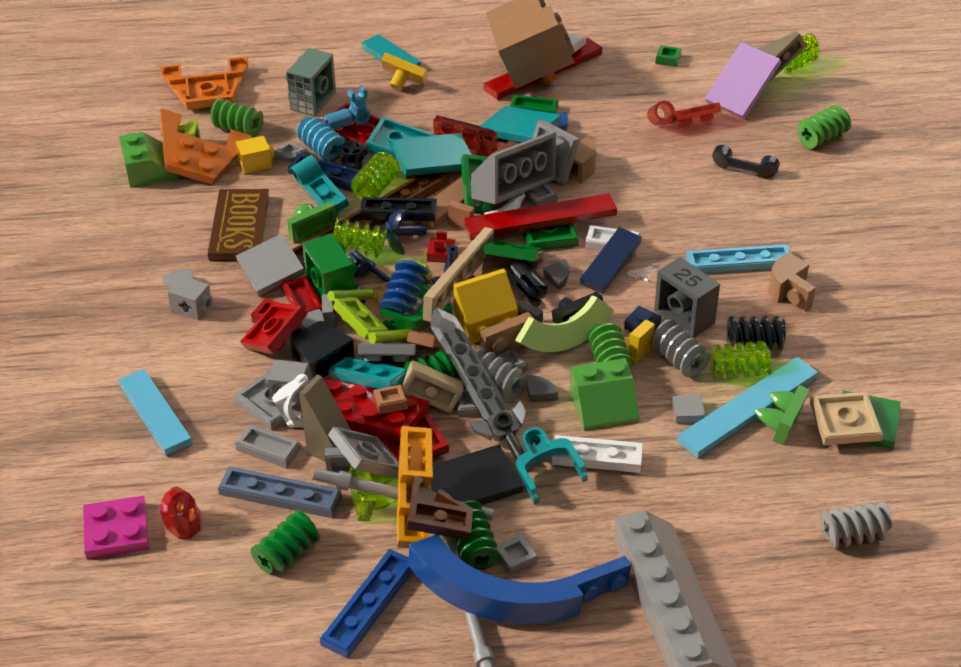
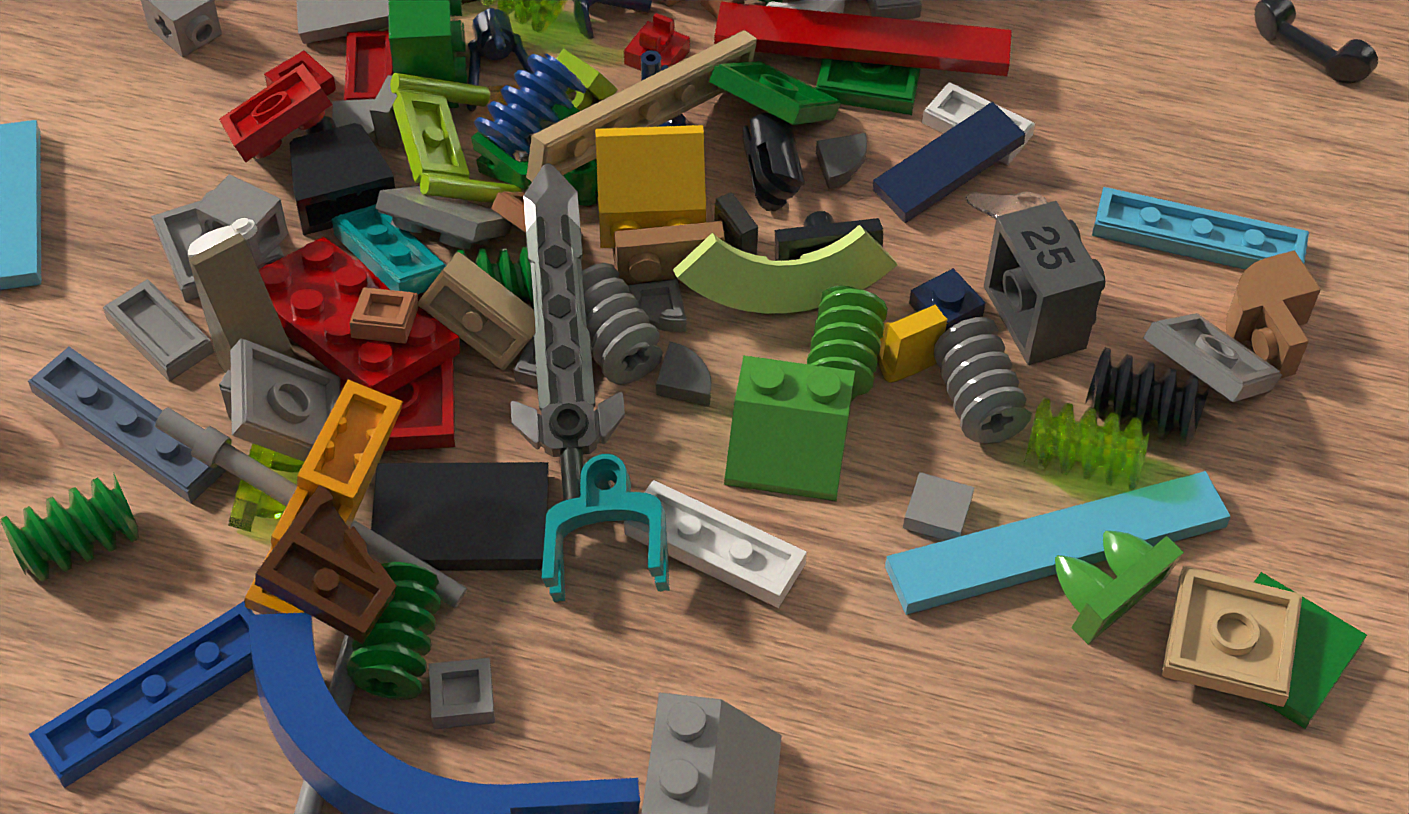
camera: 20 degrees right, 10 degrees up
(776, 306) = (1213, 356): none -> light grey tile

